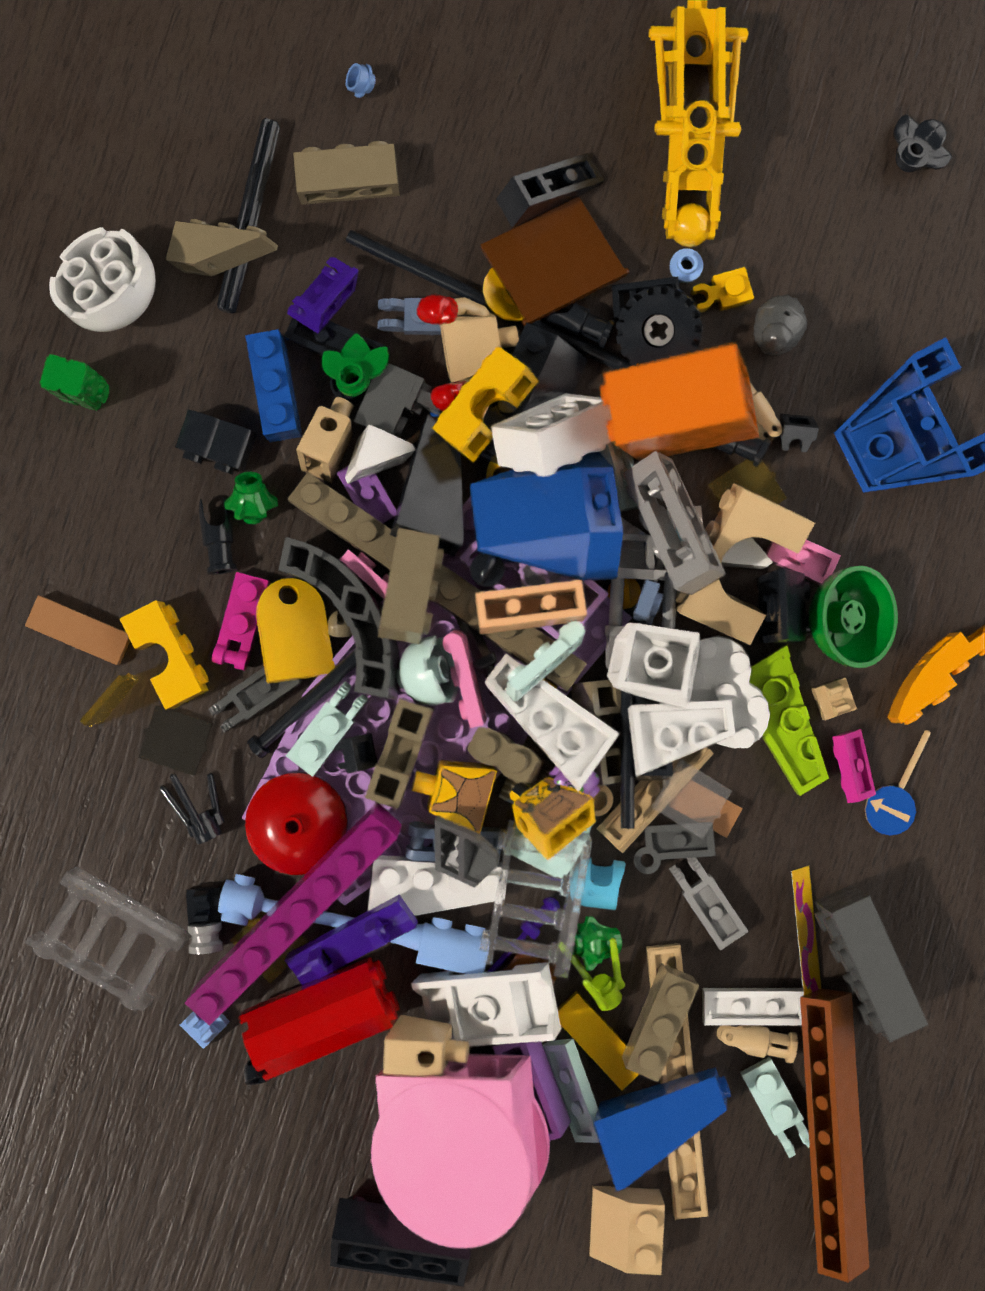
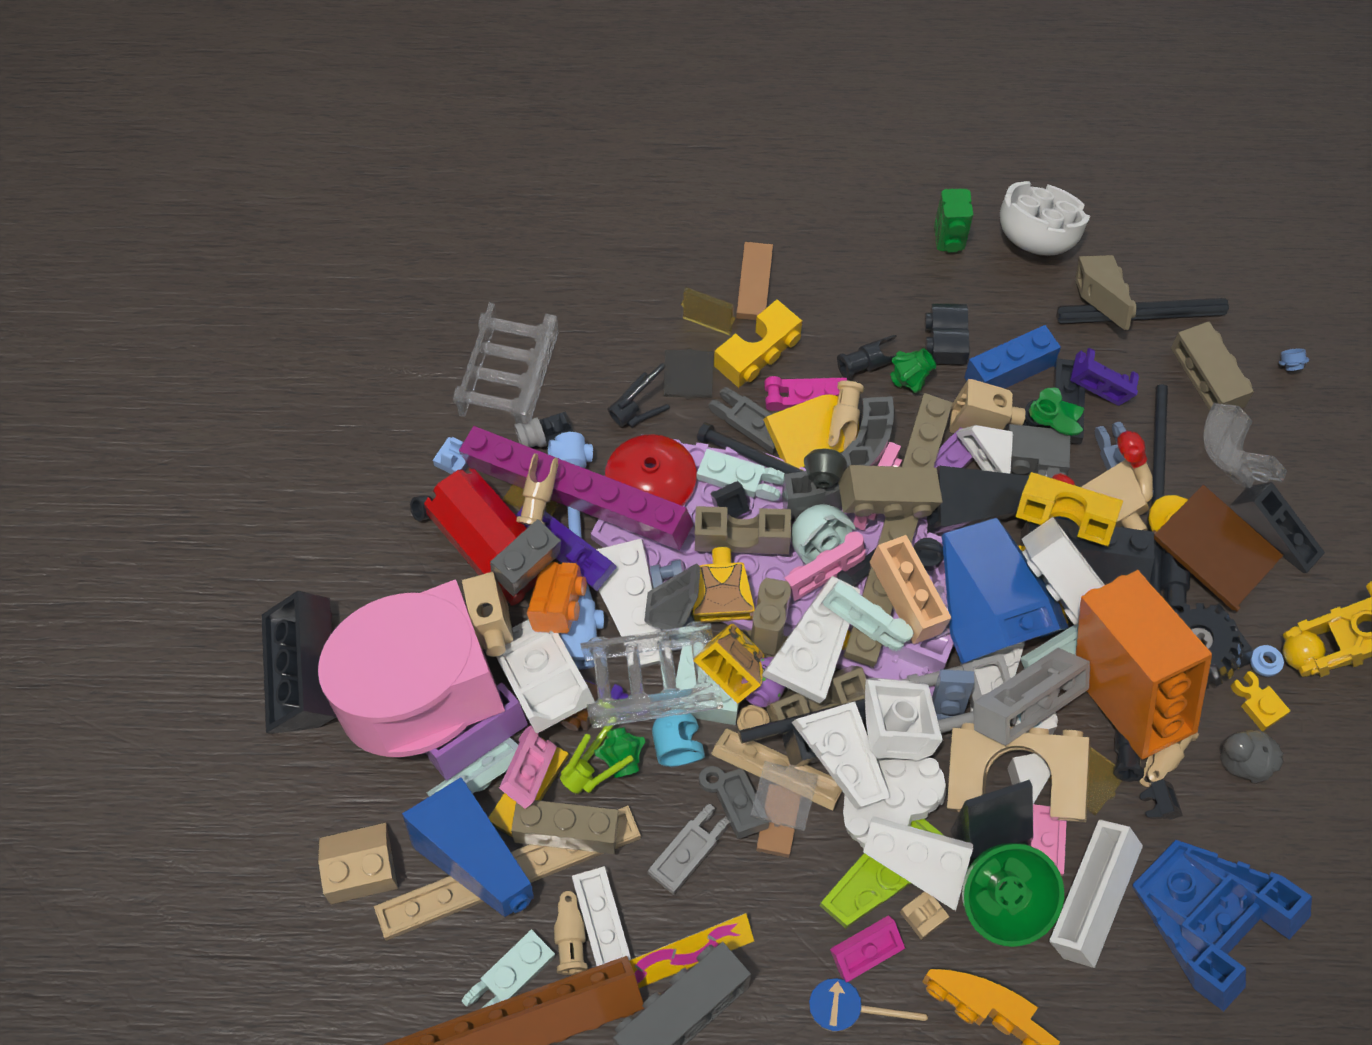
camera: 70 degrees right, 25 degrees down
(291, 594) = (846, 413): none -> tan piece
(300, 964) = (537, 493): none -> tan piece
(368, 650) = (824, 467): none -> pearl dark grey cone
(379, 1001) = (525, 557): none -> dark grey brick
(422, 971) = (556, 598): none -> orange brick
(449, 204) = (1224, 442): none -> clear arch
(598, 1048) = (527, 768): none -> bright pink plate
(795, 691) = (921, 857): none -> white wing
(871, 533) = (1096, 893): none -> white brick

